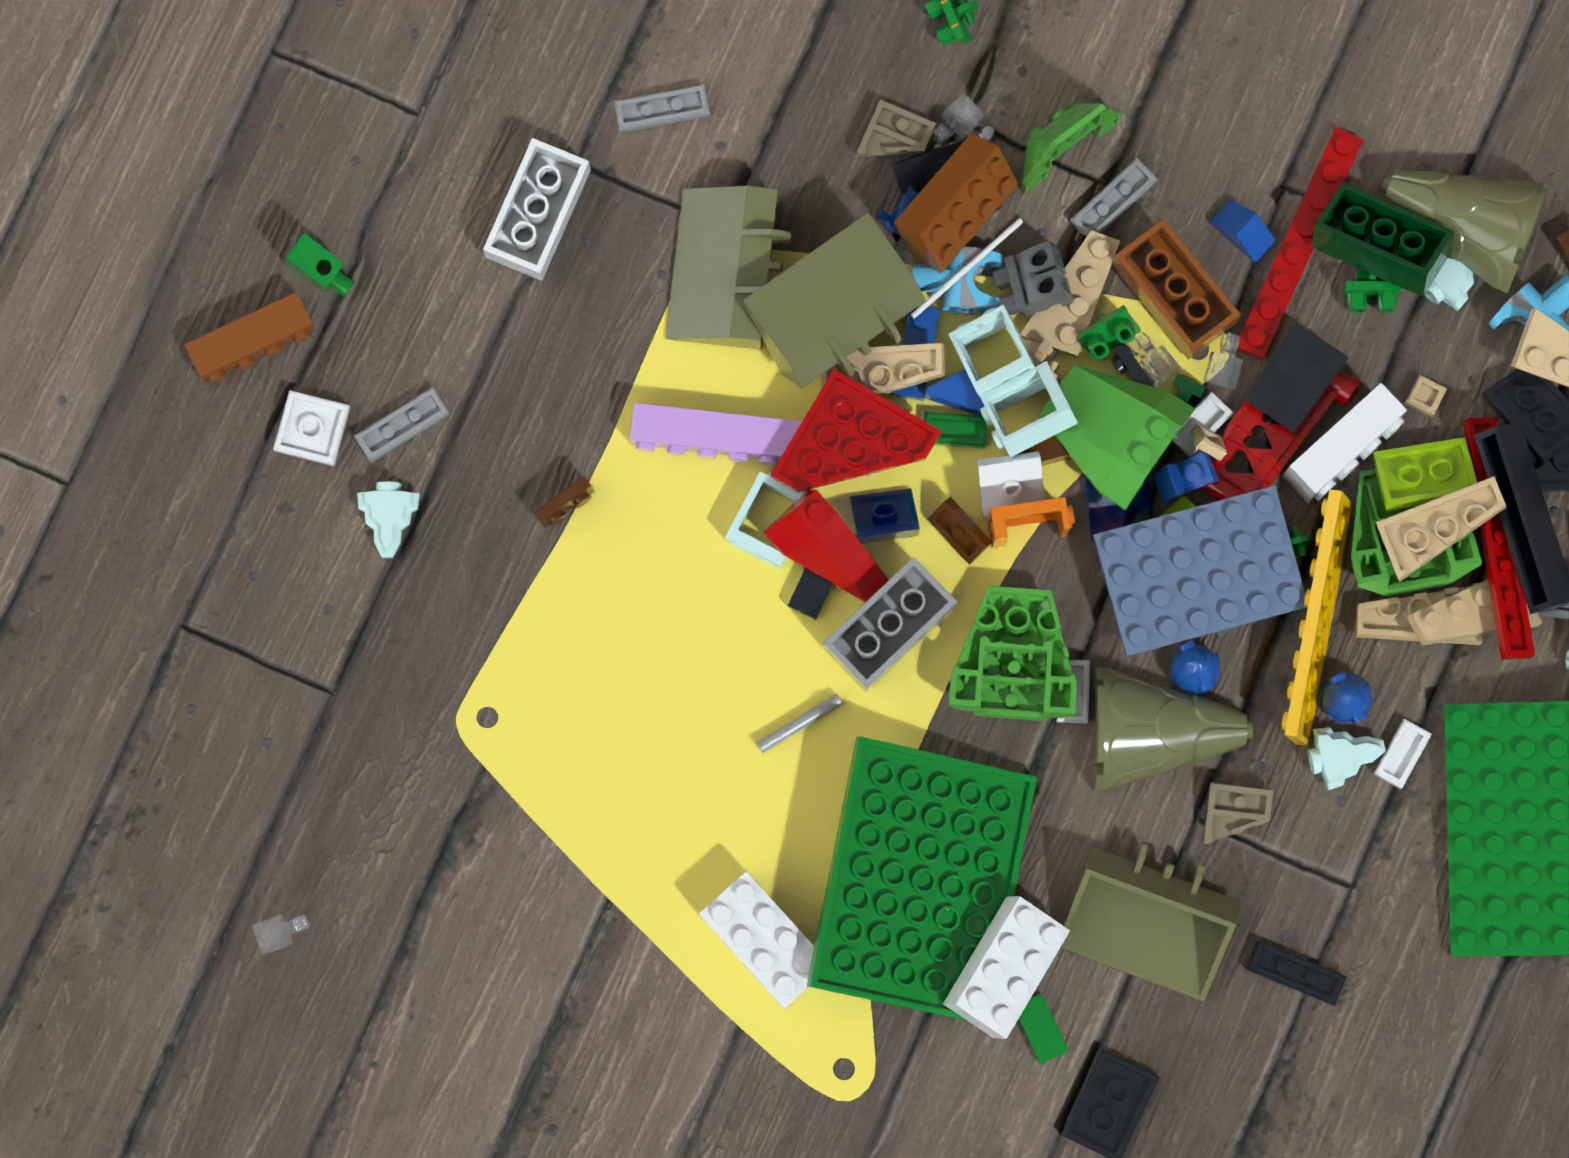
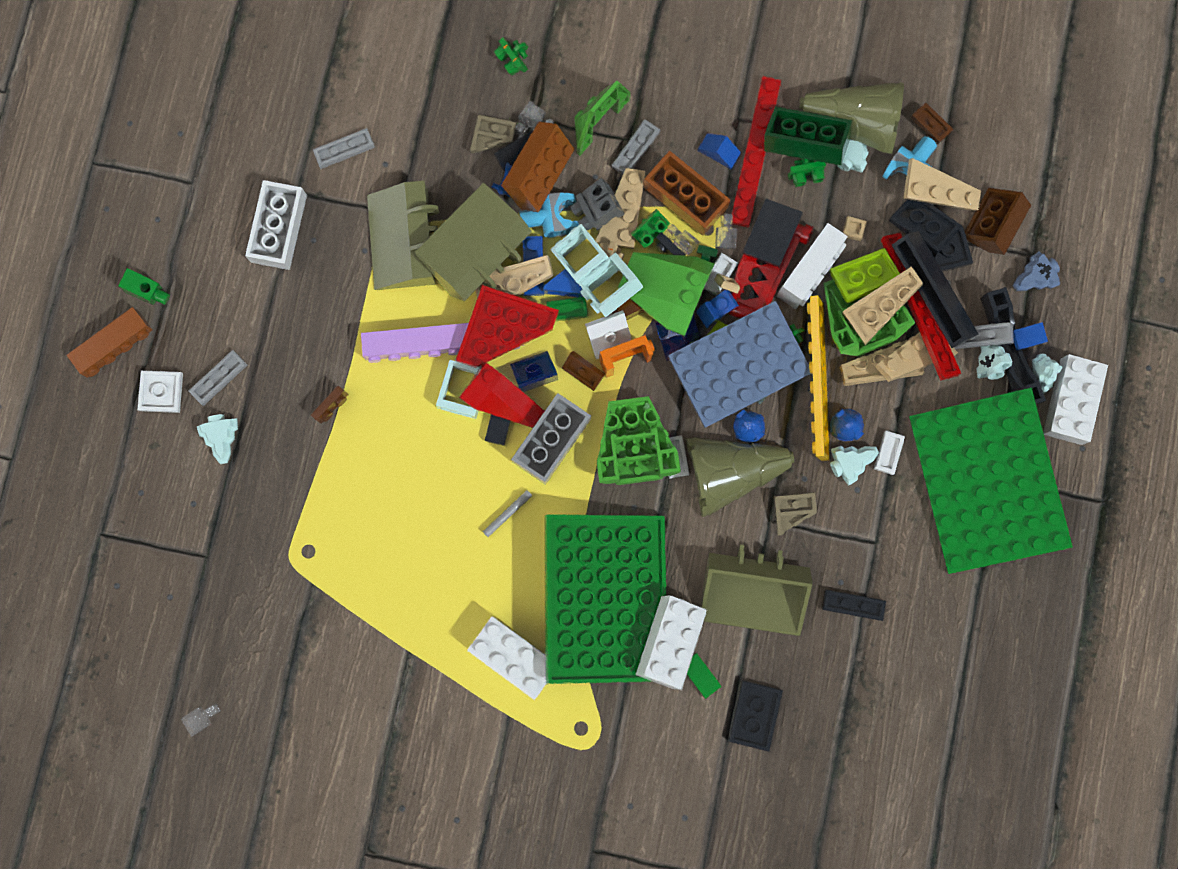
camera: 15 degrees left, 0 degrees up
(966, 268) = (553, 206): white piece -> none

